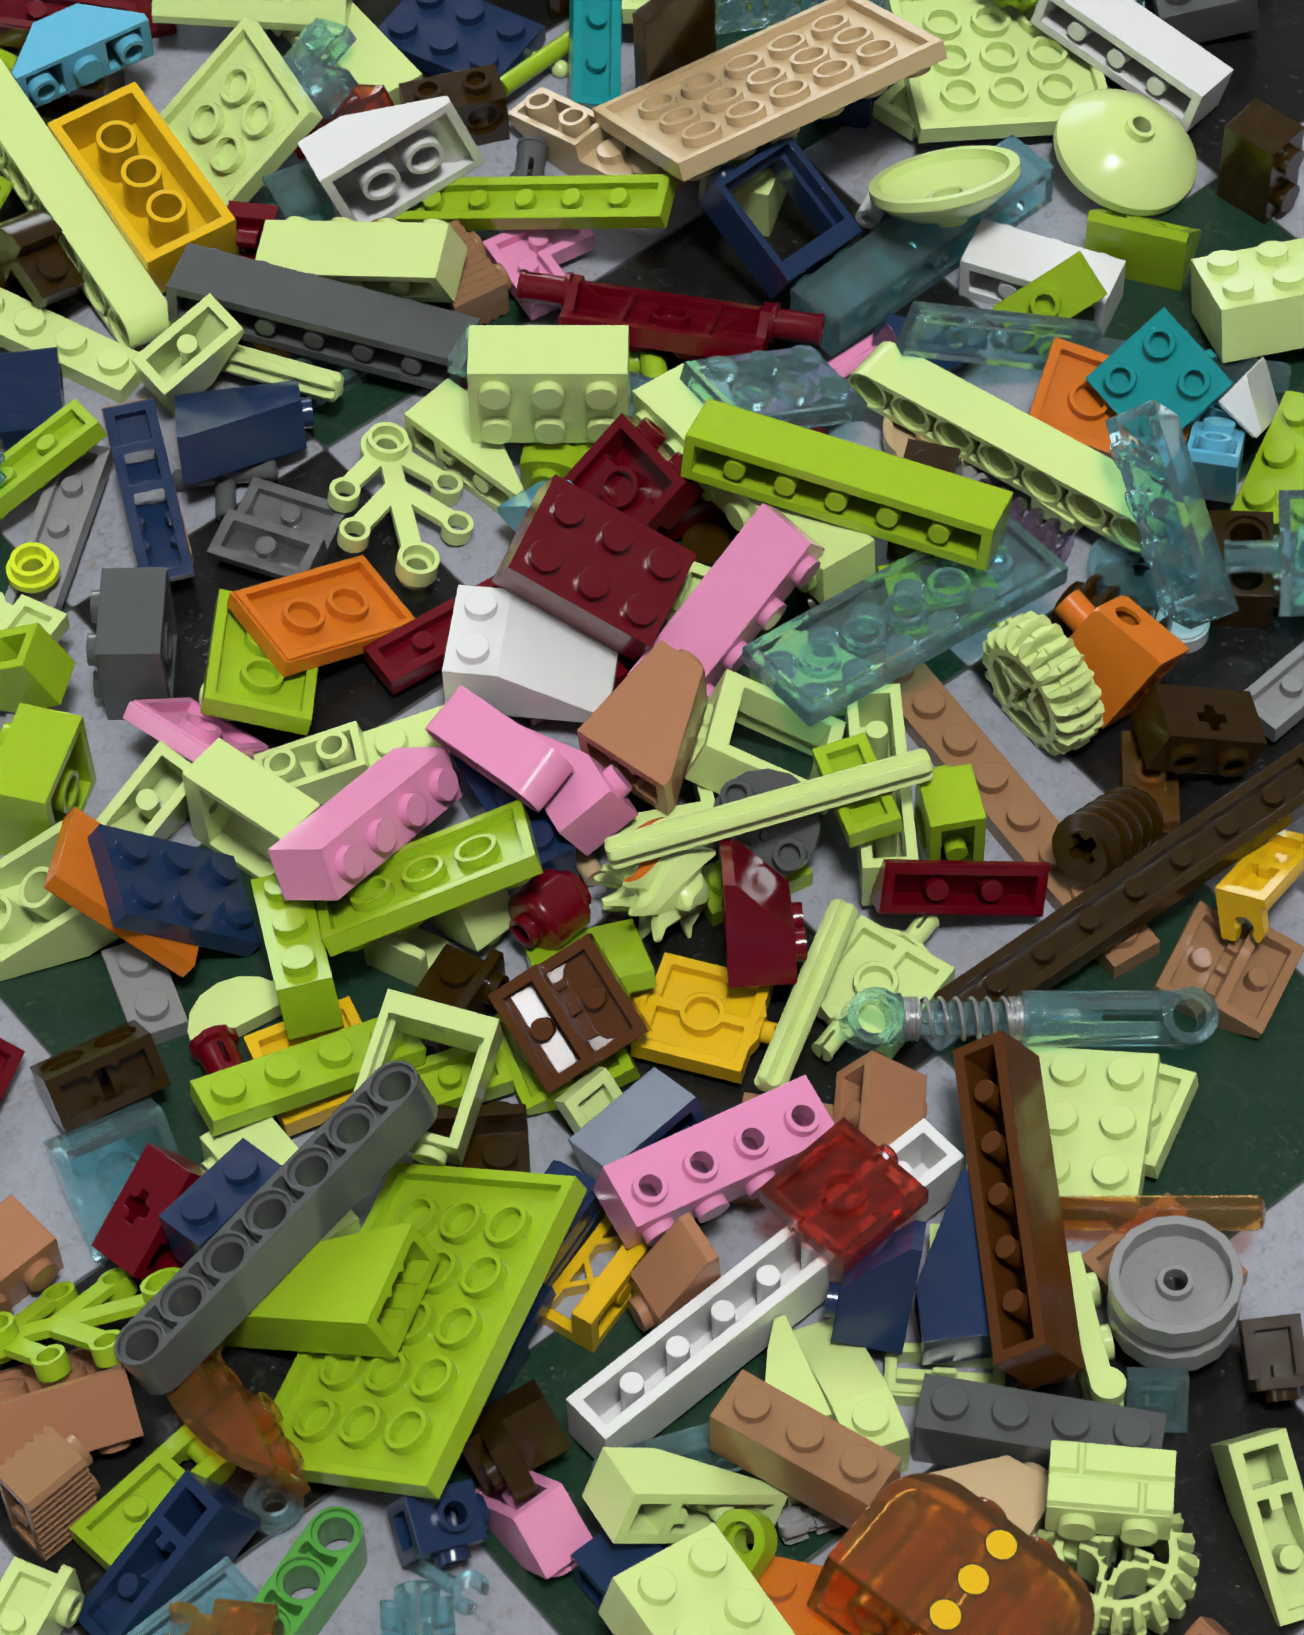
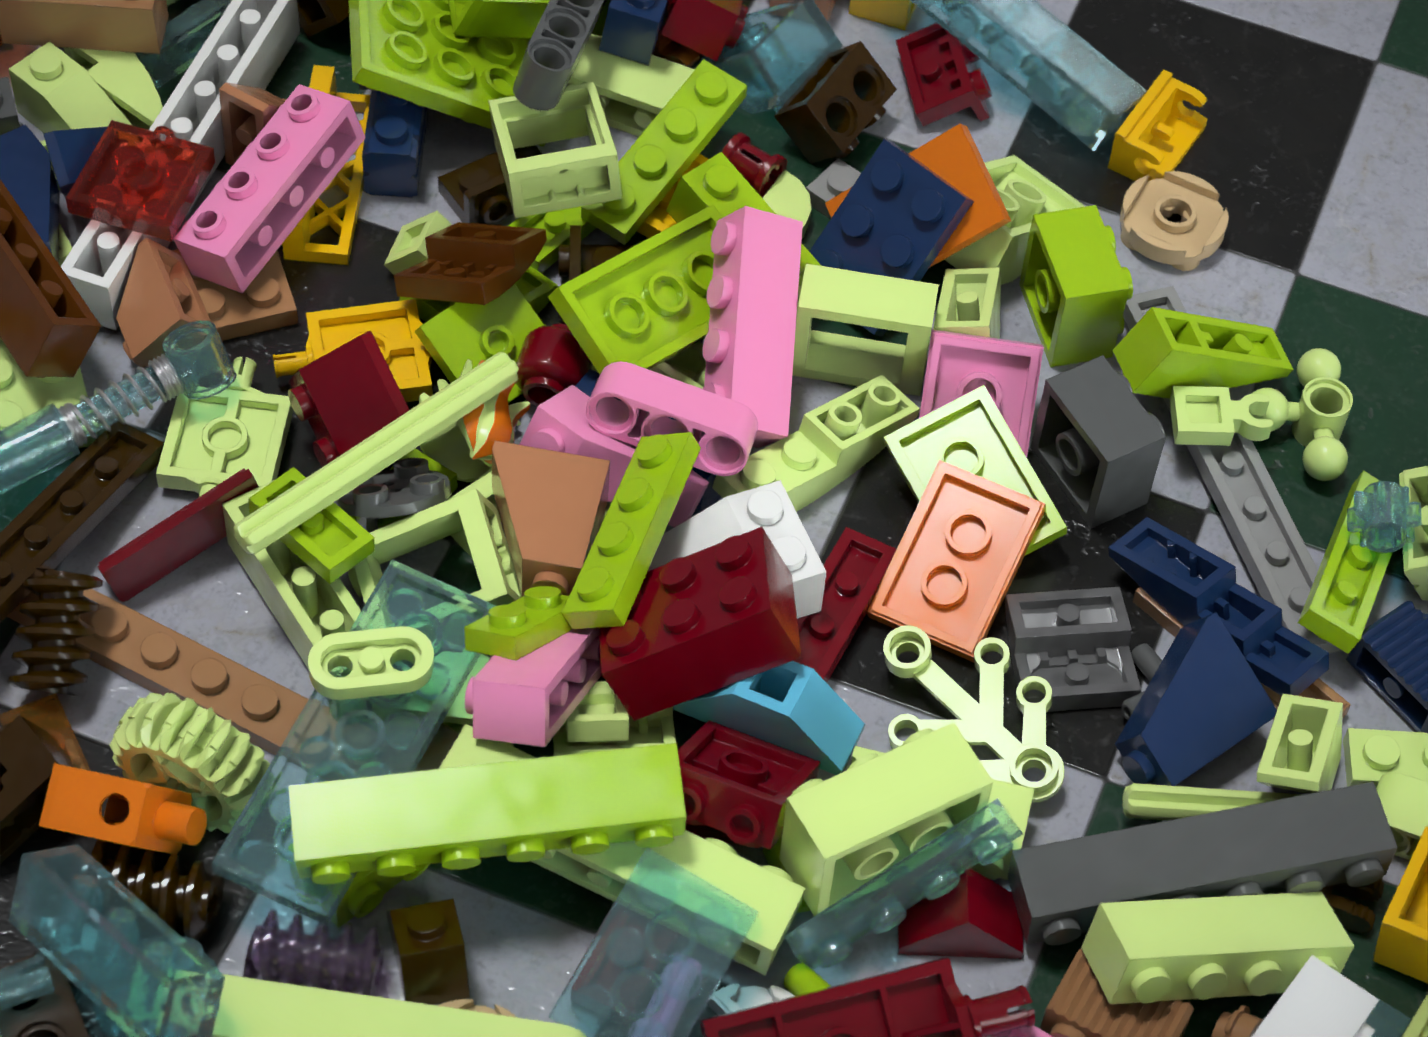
camera: 145 degrees right, 0 degrees up
(28, 558) = (1258, 467): neon yellow plate -> none
(250, 224) = (1380, 975): dark red tile -> none
(599, 652) = (631, 531): none -> lime plate
(637, 1118) = (359, 222): brick -> none
(732, 620) = (519, 626): none -> lime plate
(806, 995) = (274, 374): yellowish green axle -> none
(875, 625) = (370, 659): none -> yellowish green plate
(950, 815) = (217, 577): lime brick -> none

